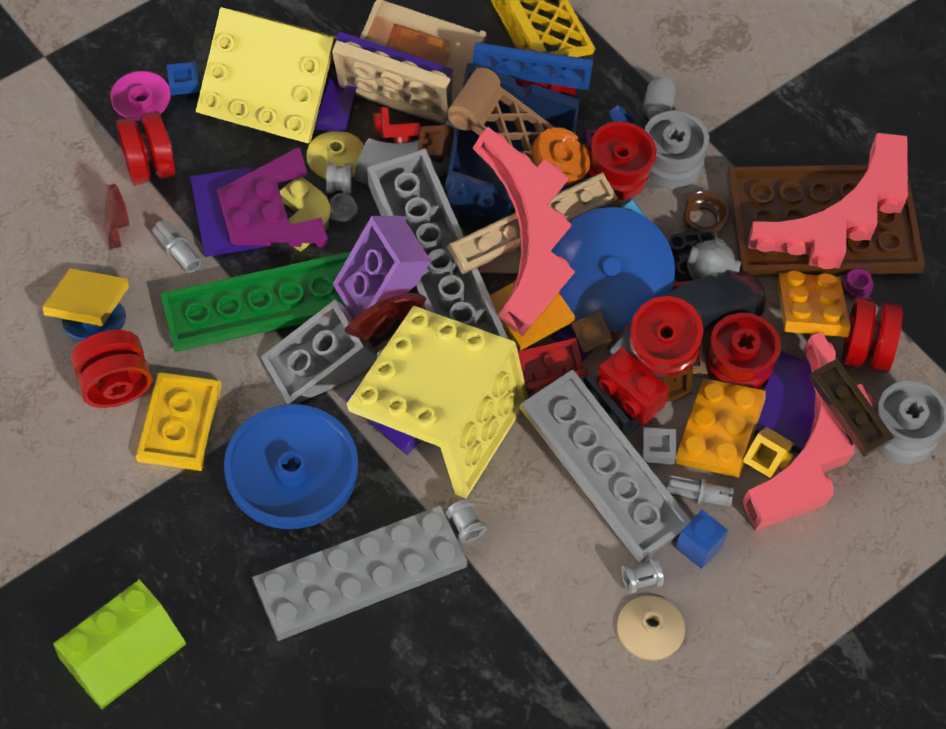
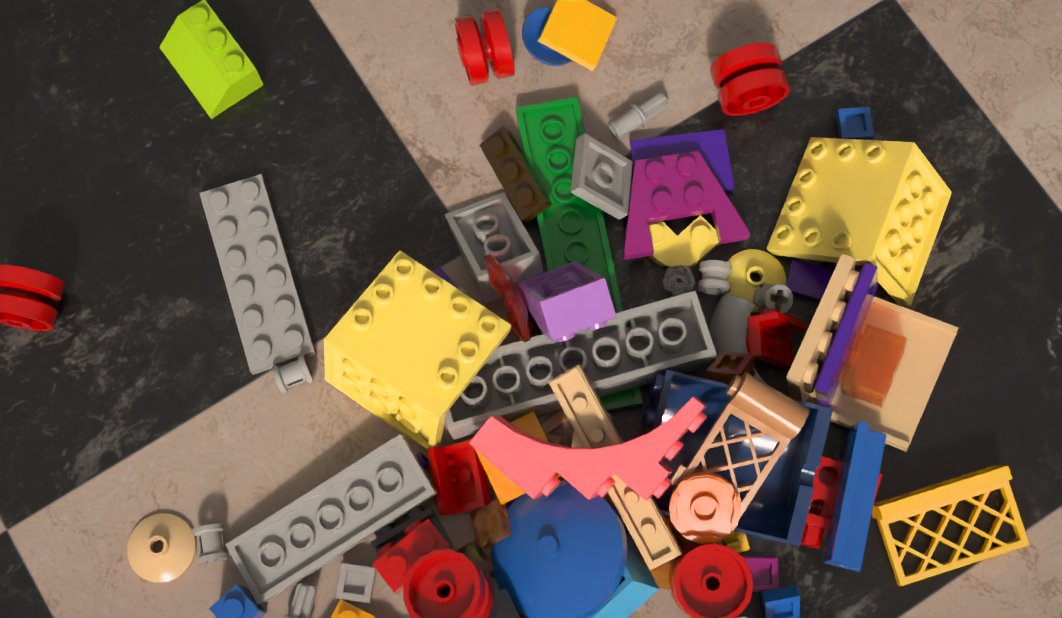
camera: 100 degrees right, 15 degrees up
(114, 216) = (686, 53): clear red brick -> none
(139, 87) = (831, 69): dark pink dish -> none
(179, 421) = (438, 116): yellow tile -> none
(245, 340) = (515, 174): none -> dark brown plate
(248, 262) = (601, 176): none -> light grey plate
(291, 466) = (365, 209): blue dish -> none
(359, 127) = (783, 296): none -> light grey bush

